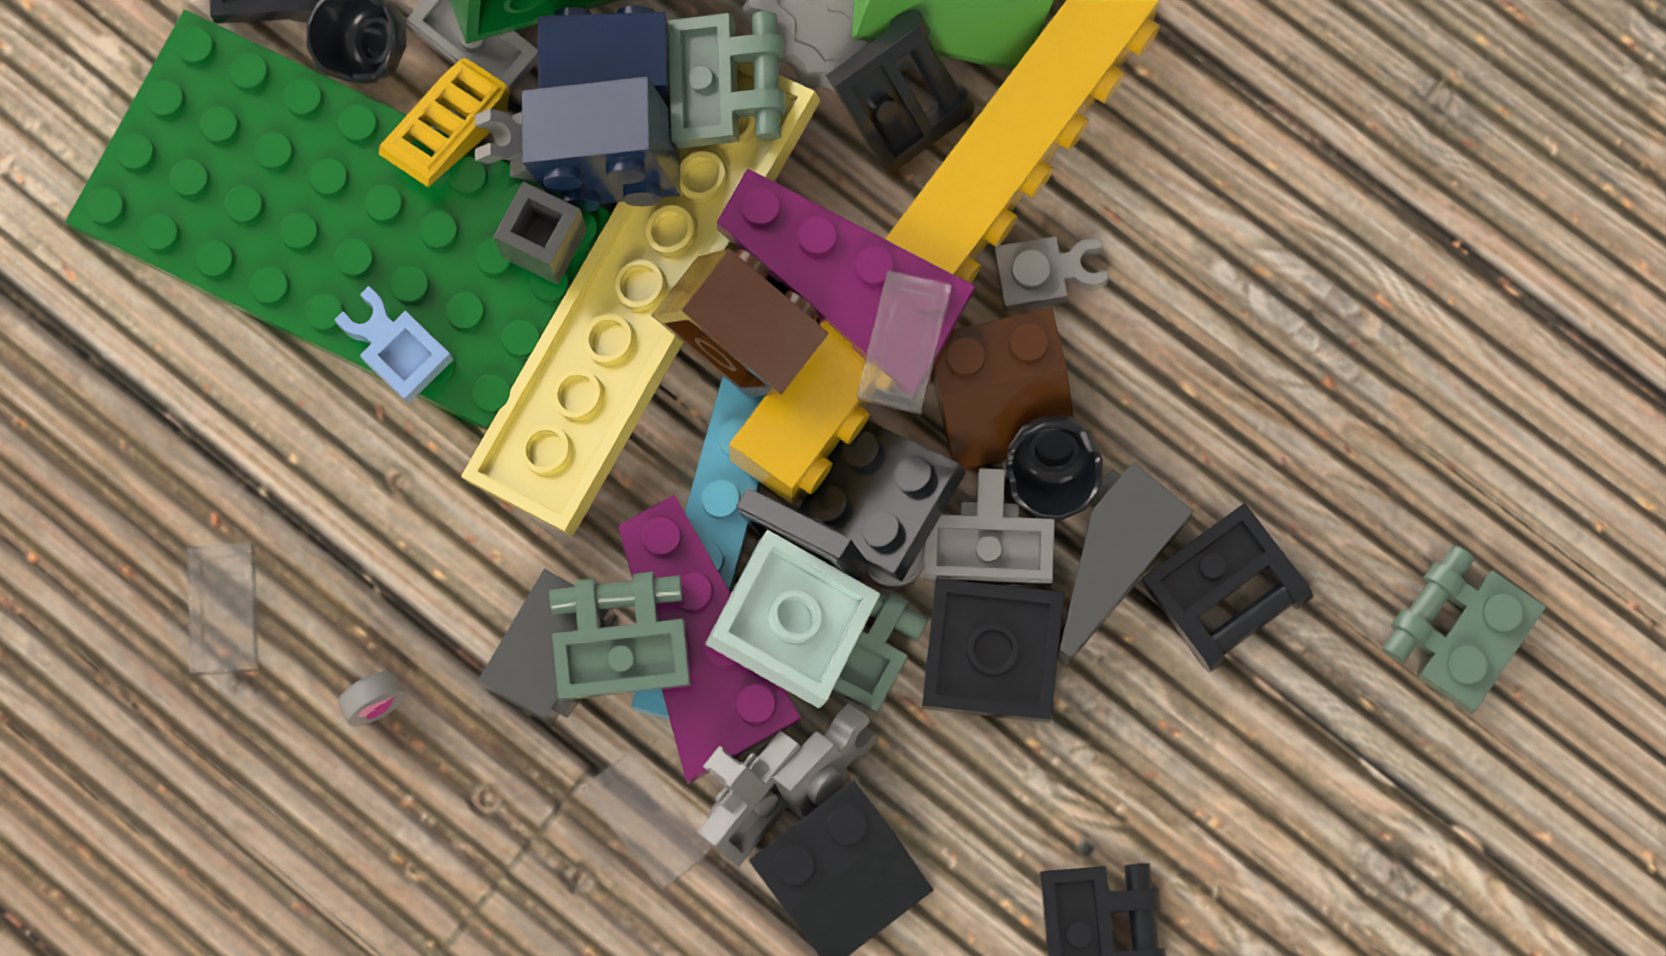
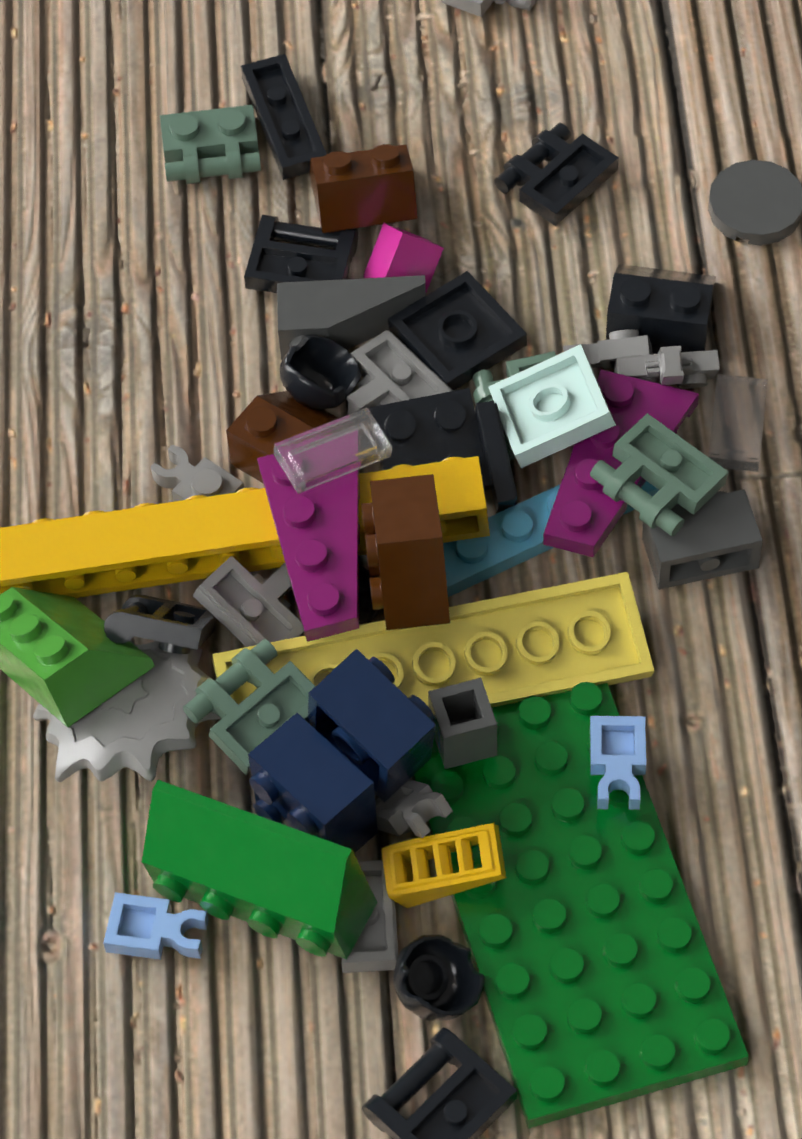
camera: 135 degrees left, 20 degrees down
(858, 183) = (250, 604): none -> light grey hinge
(1125, 674) = (402, 254): none -> dark pink panel
(1251, 709) = (363, 187): none -> reddish brown slope
(1430, 729) = (283, 115): none -> black plate

